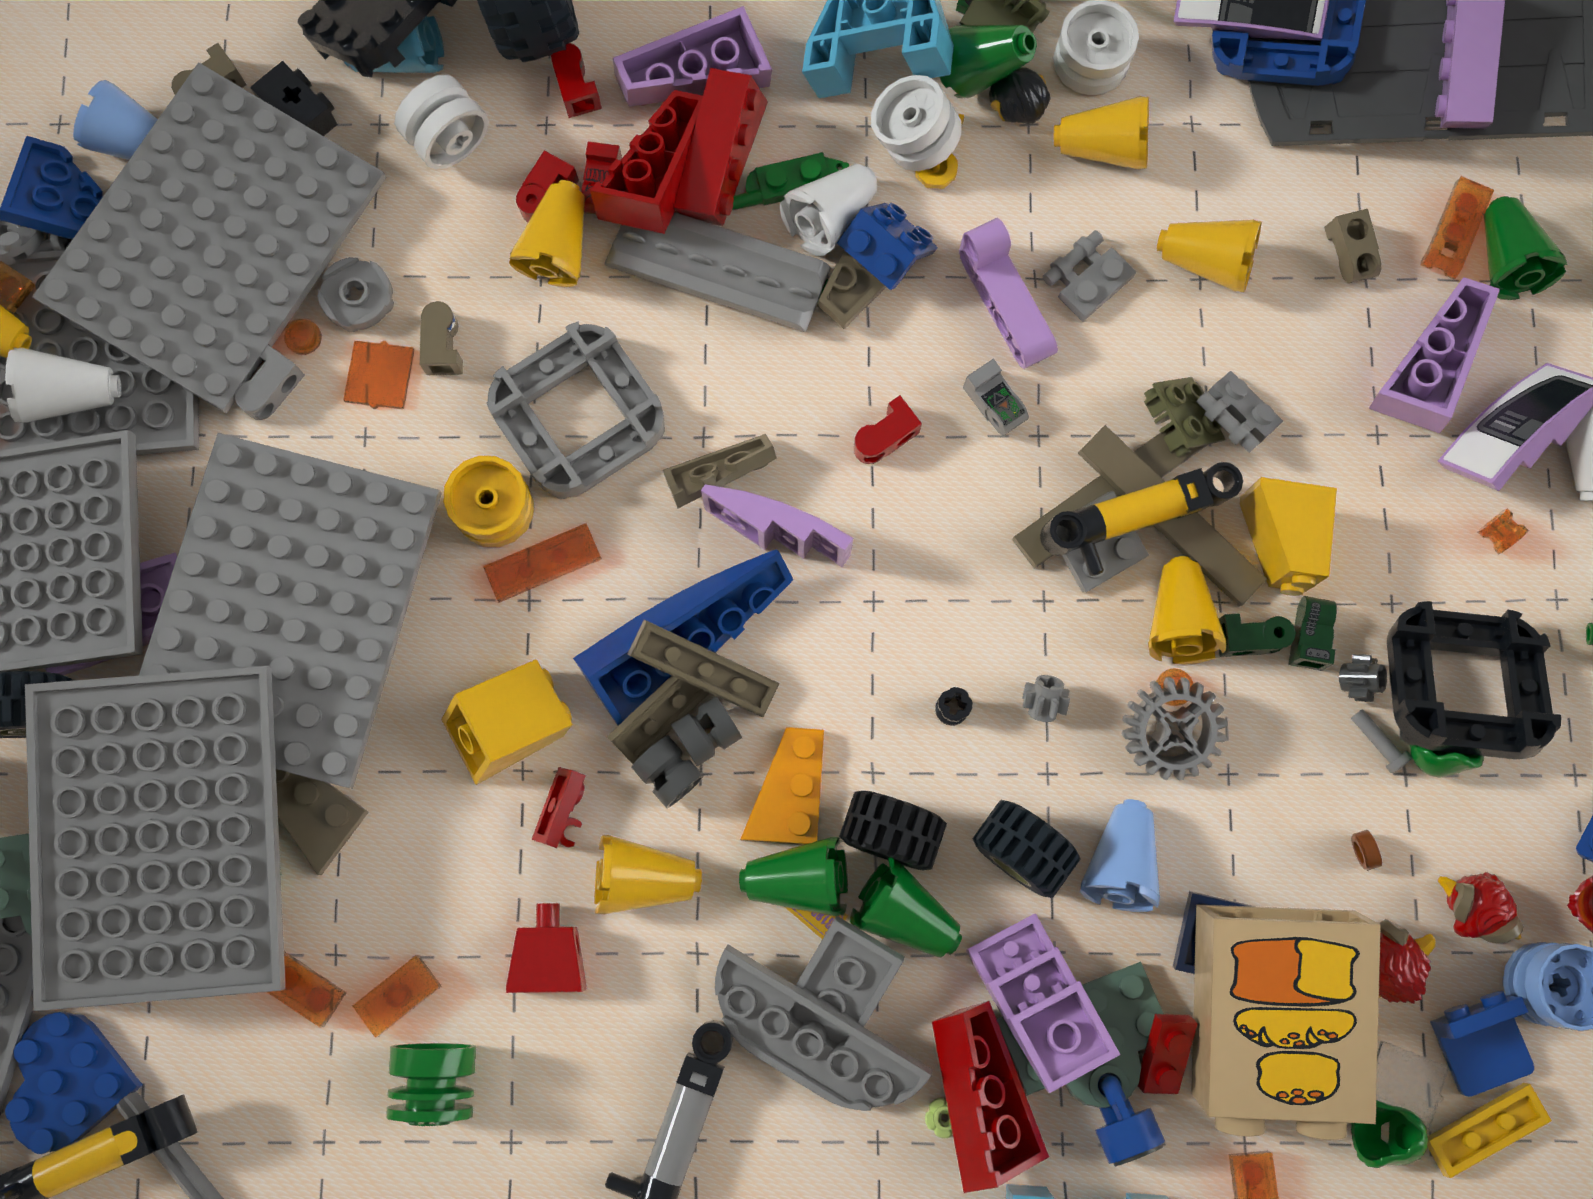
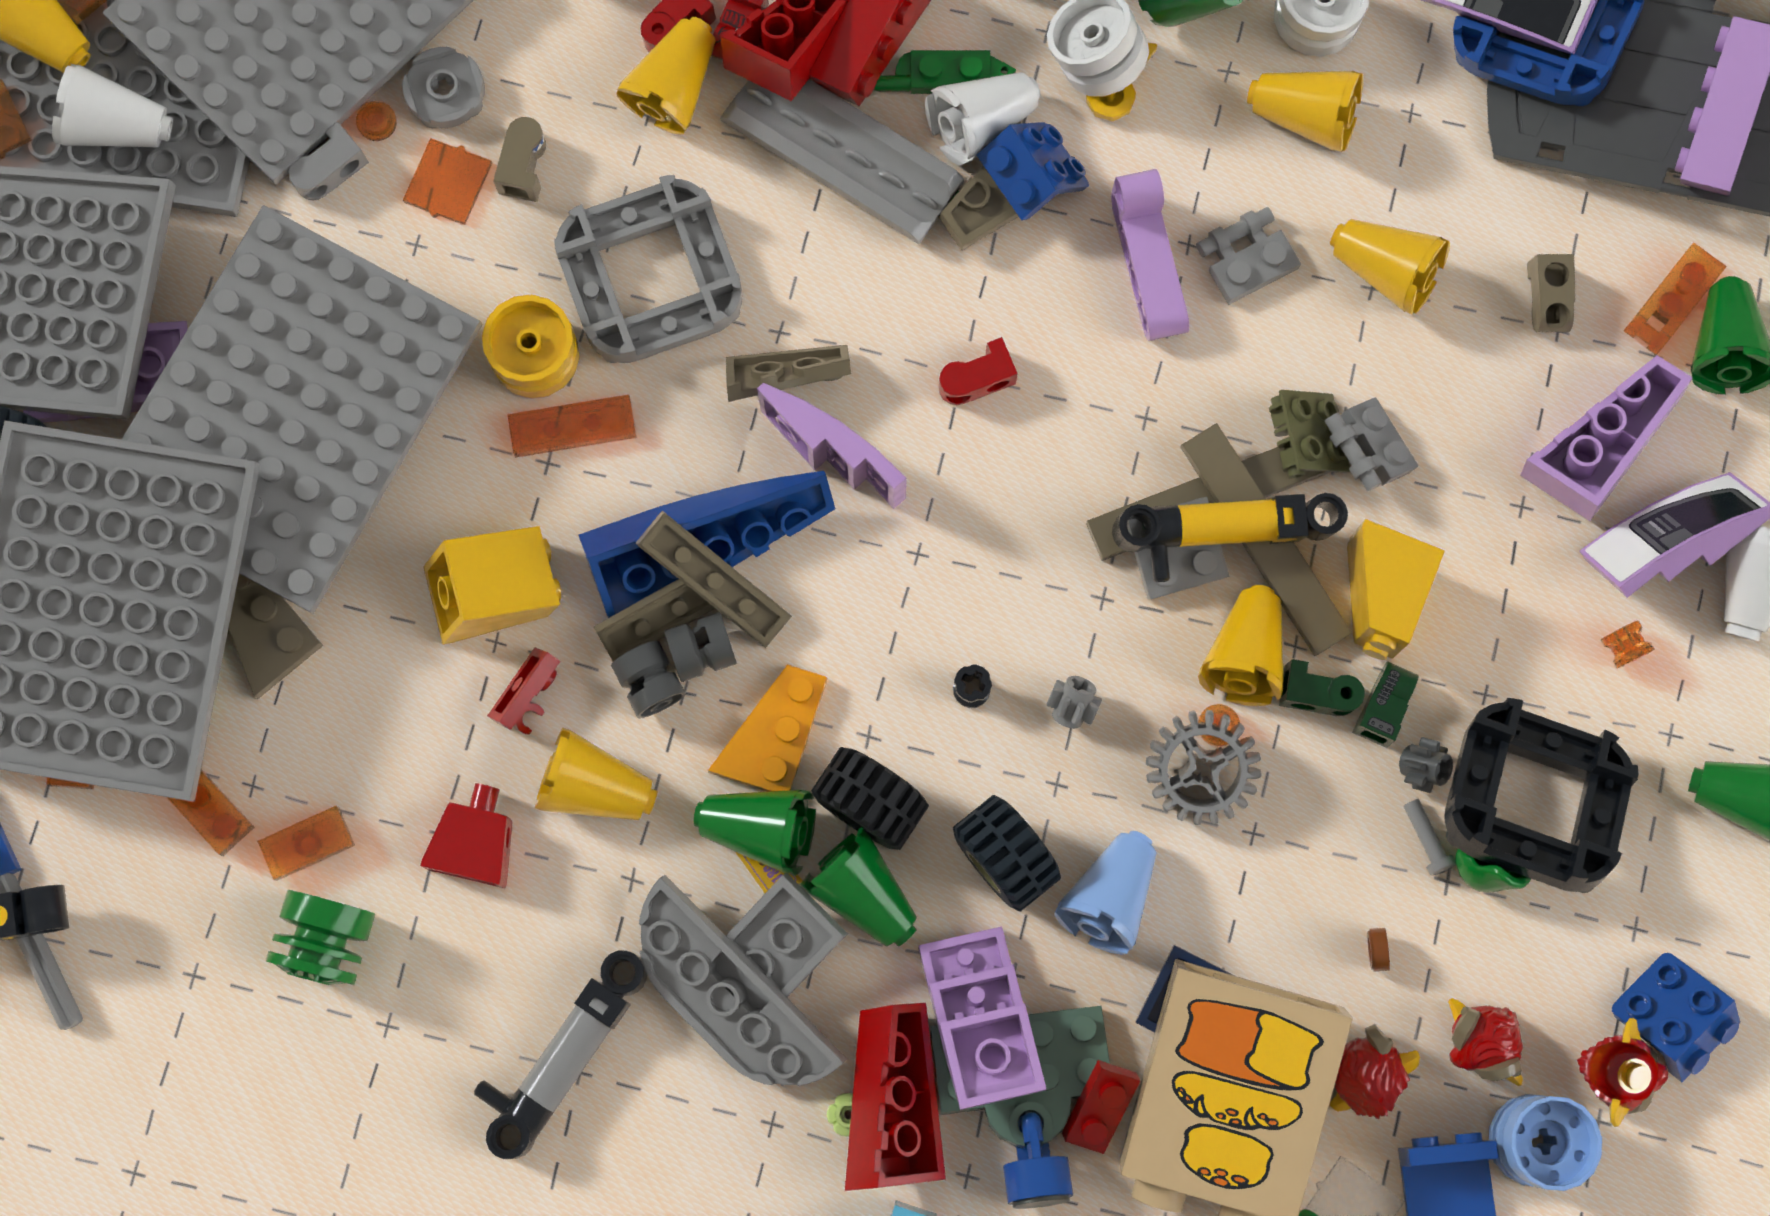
camera: 15 degrees right, 0 degrees up
(995, 398) = (1107, 365): light grey leg -> none
(1020, 96) = (1225, 39): black hair -> none

